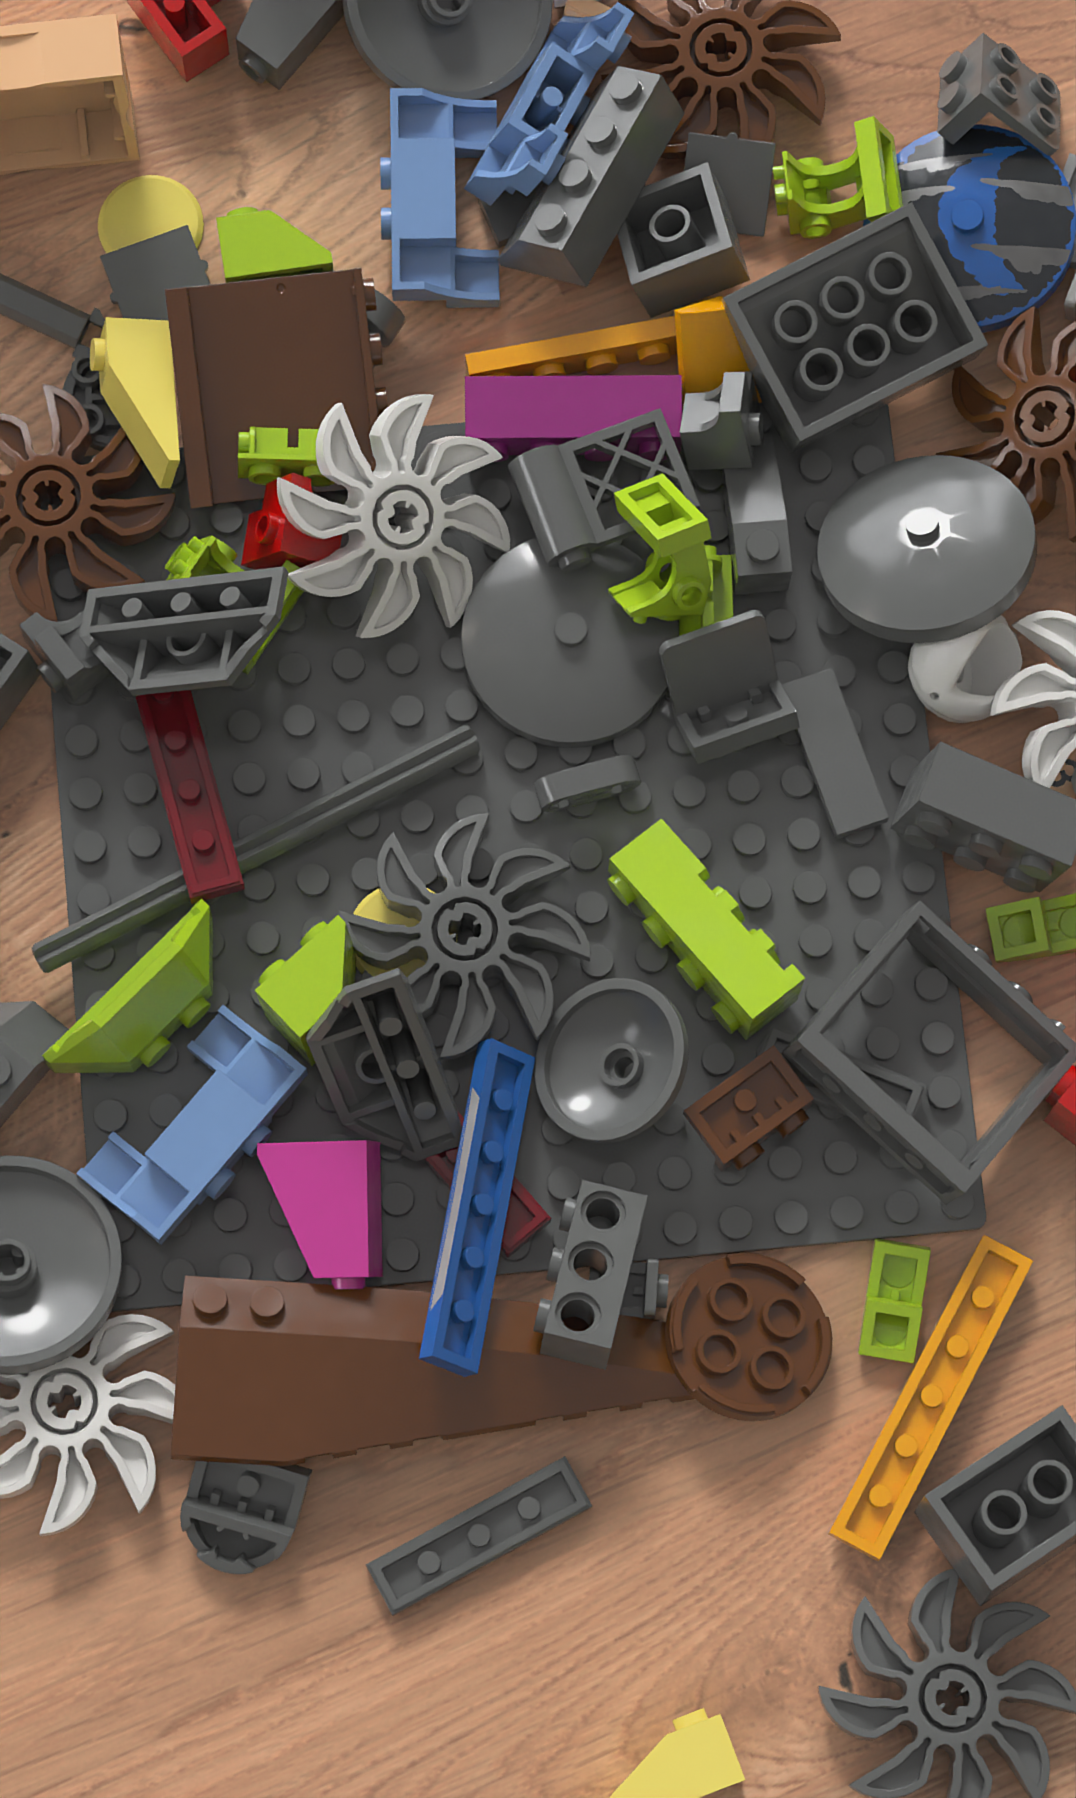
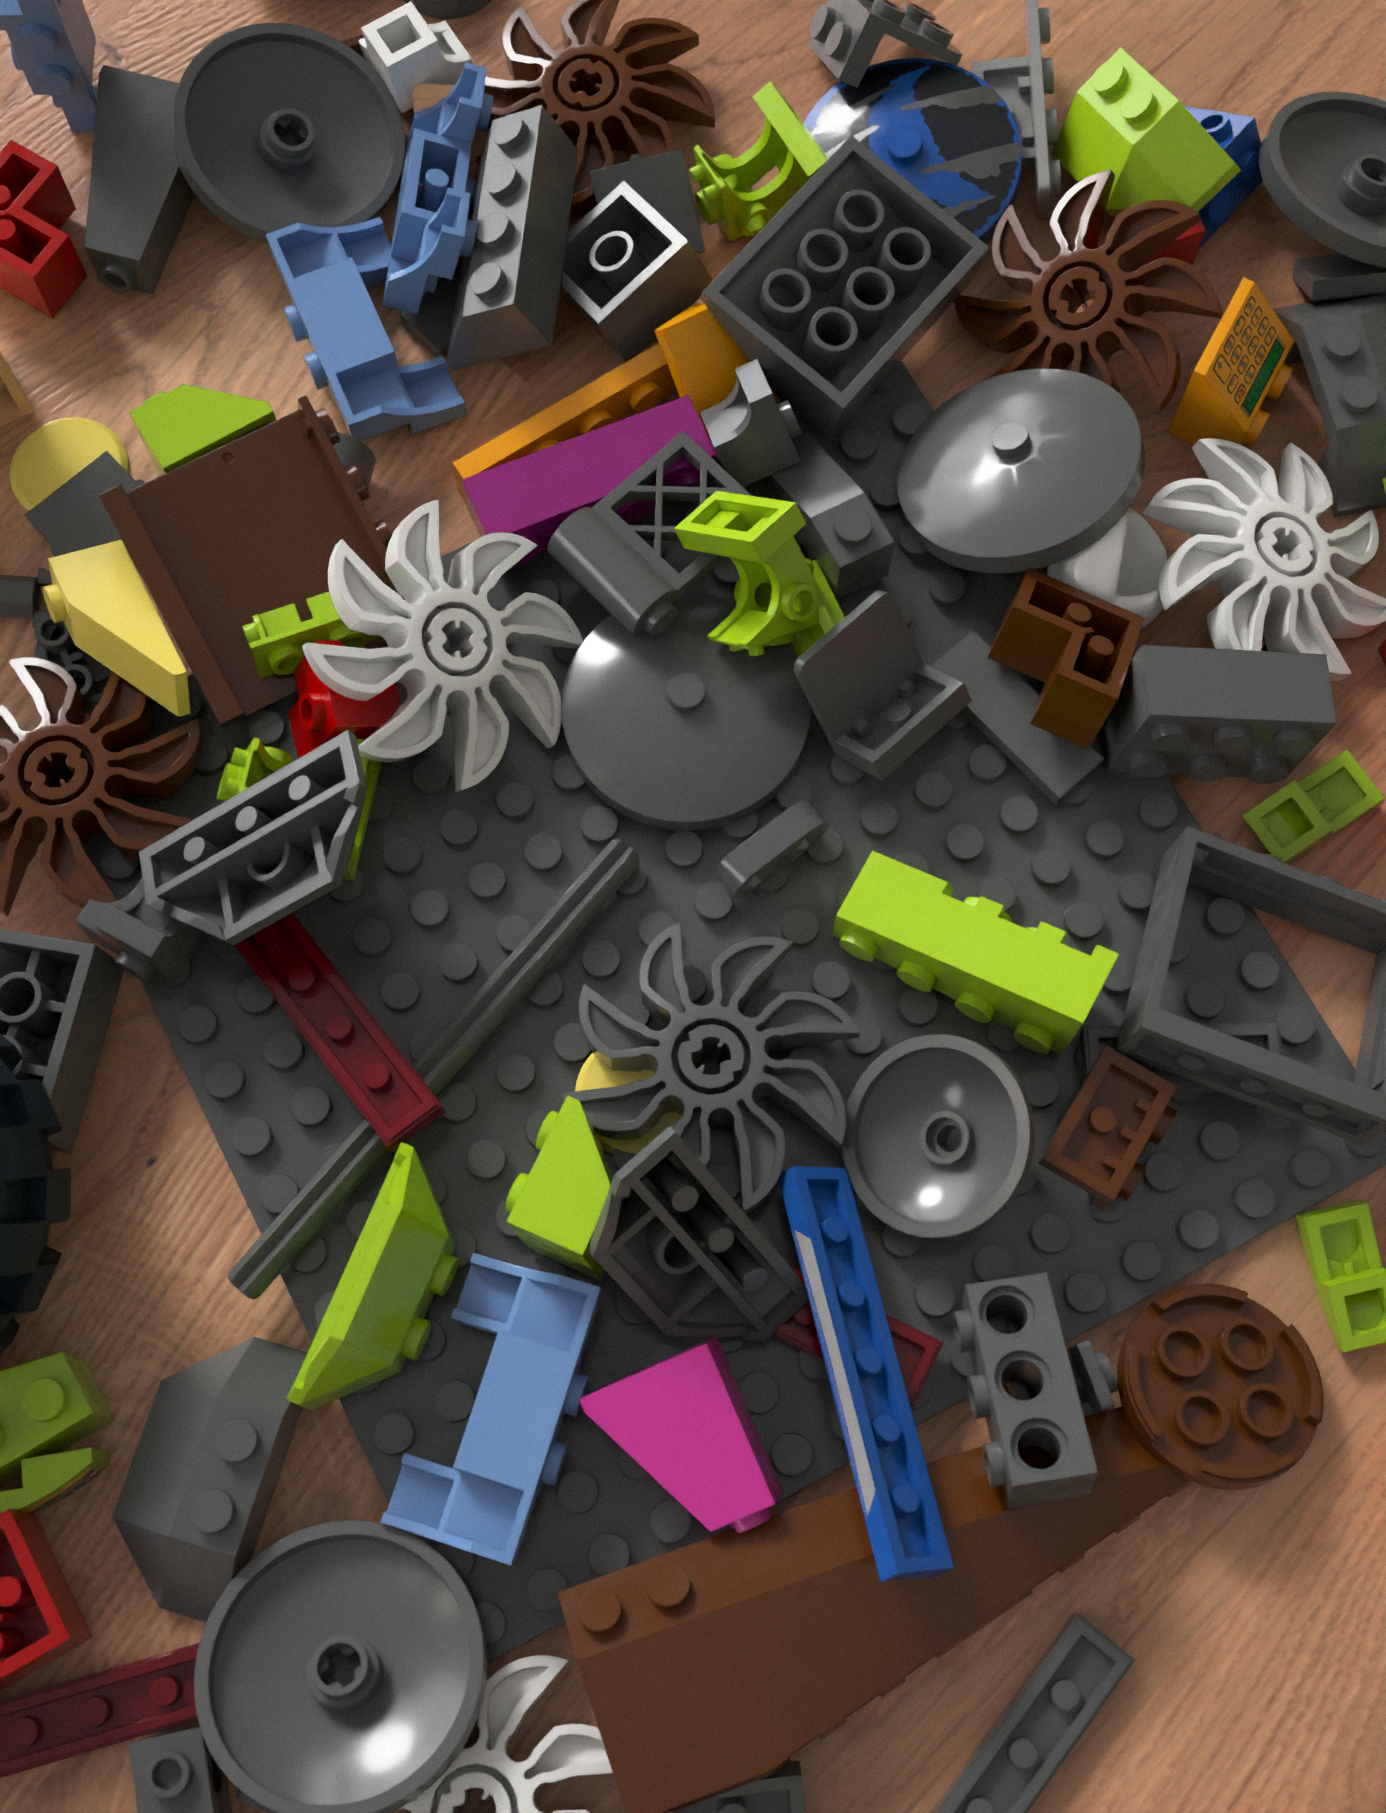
camera: 20 degrees left, 5 degrees down
(899, 714) = (1071, 646): none -> reddish brown brick

